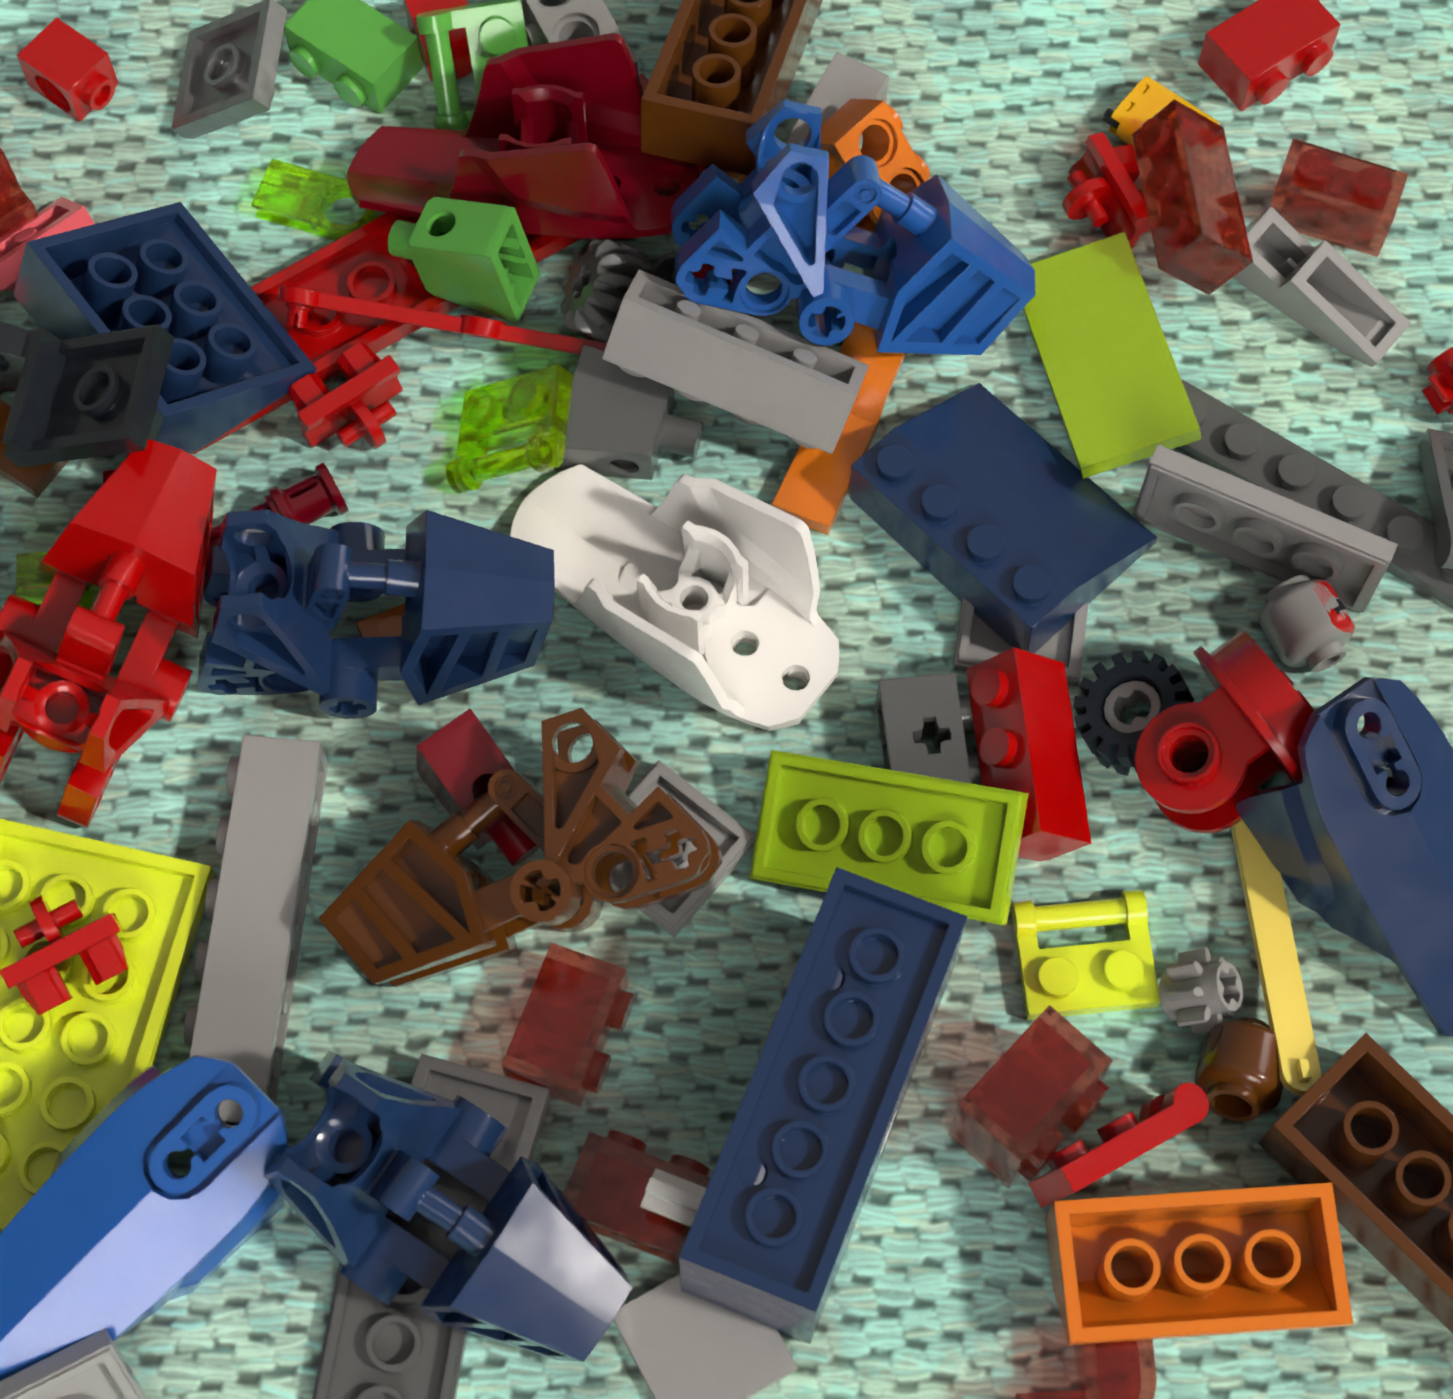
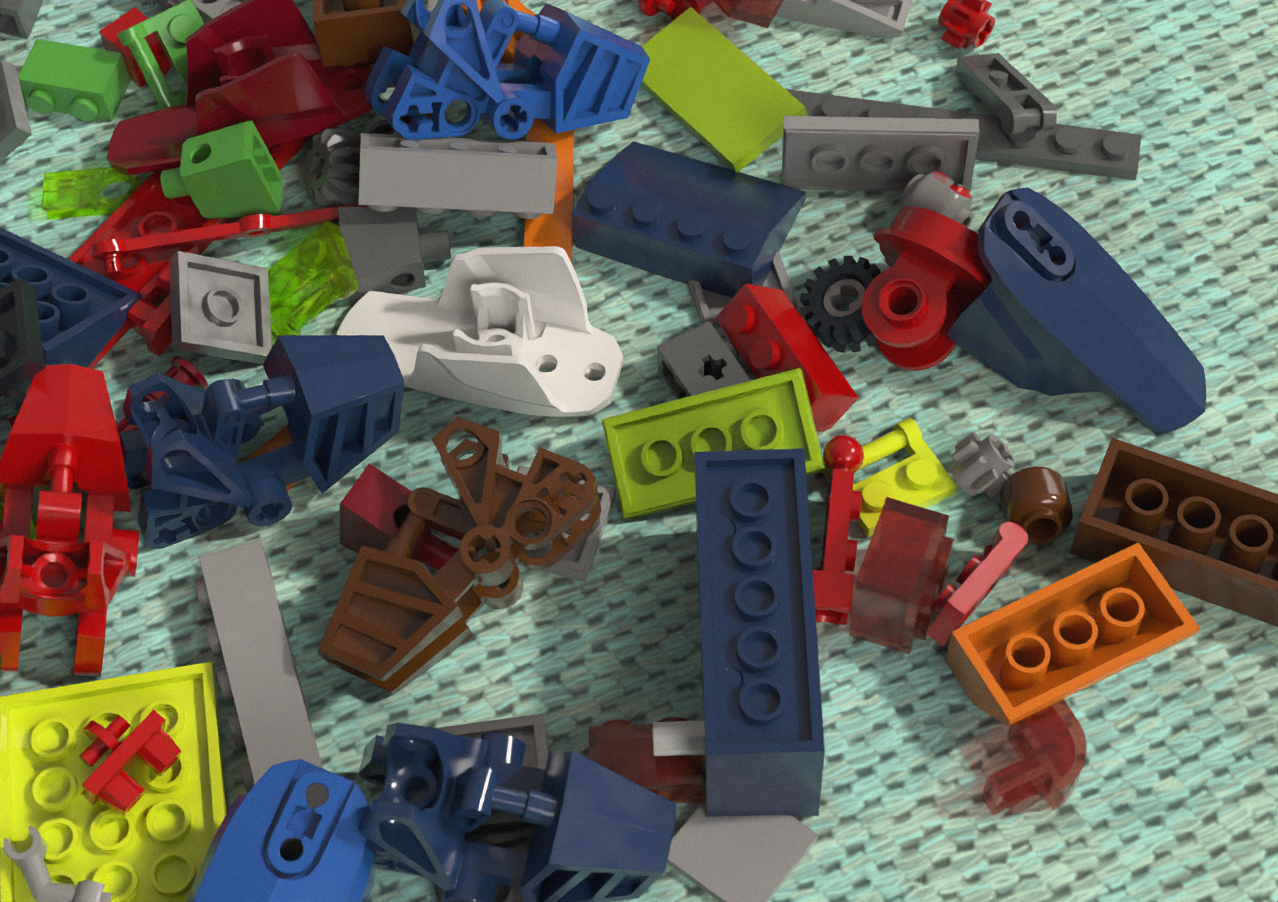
camera: 20 degrees left, 10 degrees down
(394, 424) = (220, 308): none -> flat silver plate
(568, 1024) = (535, 663): clear red brick -> none
(945, 1076) = (831, 584): none -> red plate
(1277, 963) = (1024, 424): light yellow piece -> none

